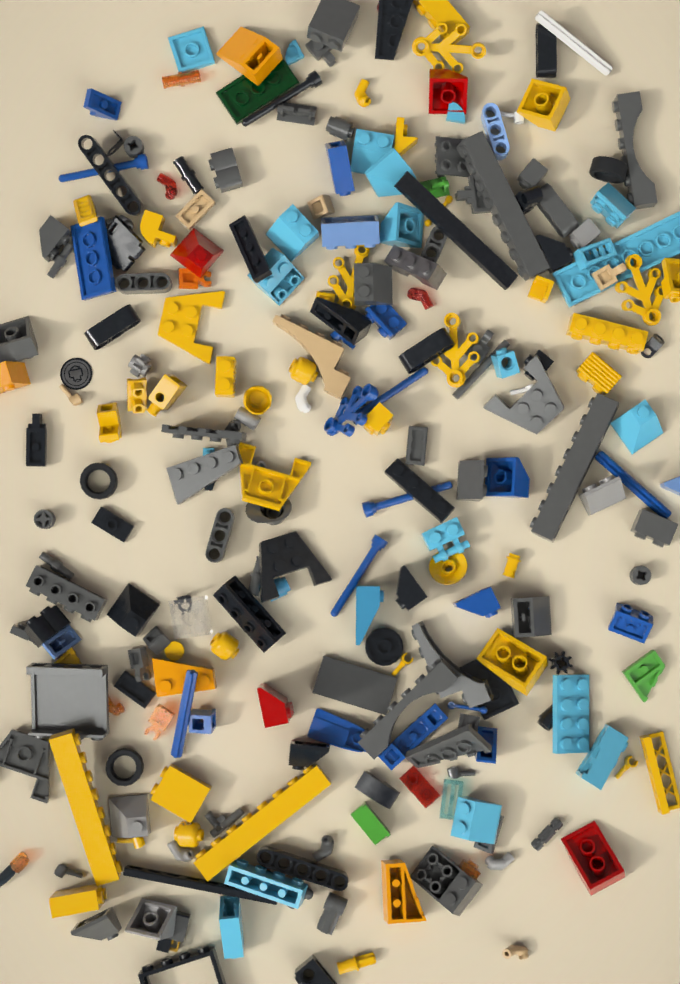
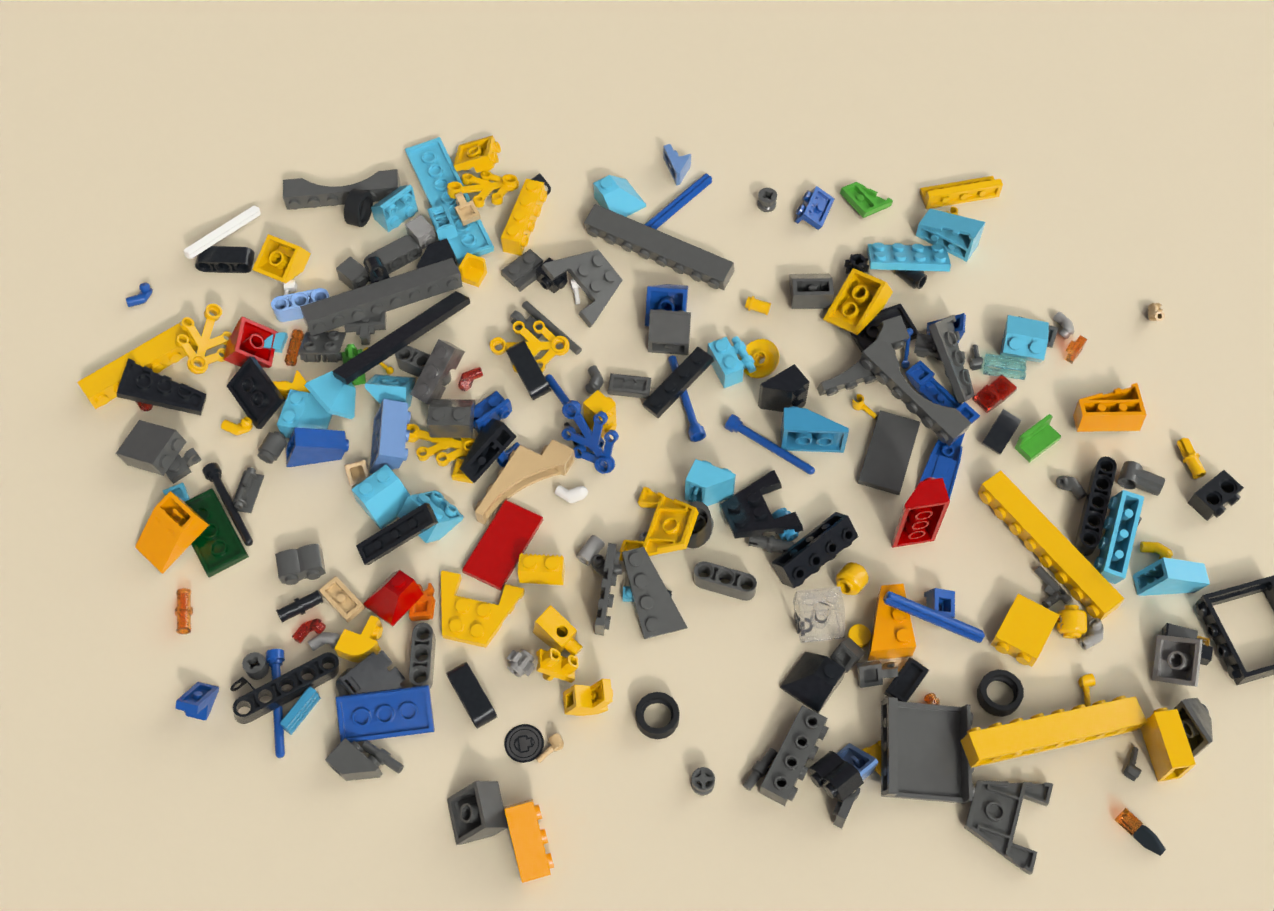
camera: 90 degrees left, 25 degrees down
(36, 442) = (606, 789): black hinge -> none
(85, 210) = (325, 718): yellow slope -> none
(95, 189) = (300, 710): none -> dark azure tile
(112, 524) = (710, 702): black plate -> none
(129, 816) = (1058, 686): light grey slope -> none
(159, 719) = (941, 652): clear orange plate -> none
(160, 201) = (324, 638): none -> light grey arm
(191, 50) = (151, 601): medium azure tile -> none
(191, 882) = (1127, 622): black tile -> none
(252, 342) = (502, 544): none -> red tile
(257, 399) = (570, 537): yellow hair -> none
(264, 919) = (1156, 547): none -> yellow arm
(303, 370) = (540, 490): yellow head -> none
(304, 753) = (969, 495): black slope -> none
(308, 517) = (709, 483): none -> medium azure slope
(384, 646) = (850, 418): black tile -> none
(394, 104) = (255, 392): none -> black tile
(422, 415) = (596, 380): none -> dark grey arm
(445, 881) = (1091, 369): dark grey slope -> none
(449, 131) = (293, 347): none -> clear orange axle
(480, 603) = (797, 327): blue slope -> none
(510, 369) = (547, 301): medium azure brick -> none
(546, 338) = (522, 270): none -> dark grey plate
(546, 834) = (1031, 284): dark grey axle -> none
(593, 858) = (1052, 244): red slope -> none
(598, 373) = (564, 226): yellow brick -> none
(600, 497) = (686, 222): light grey slope -> none
(654, 527) = (720, 186): dark grey brick -> none

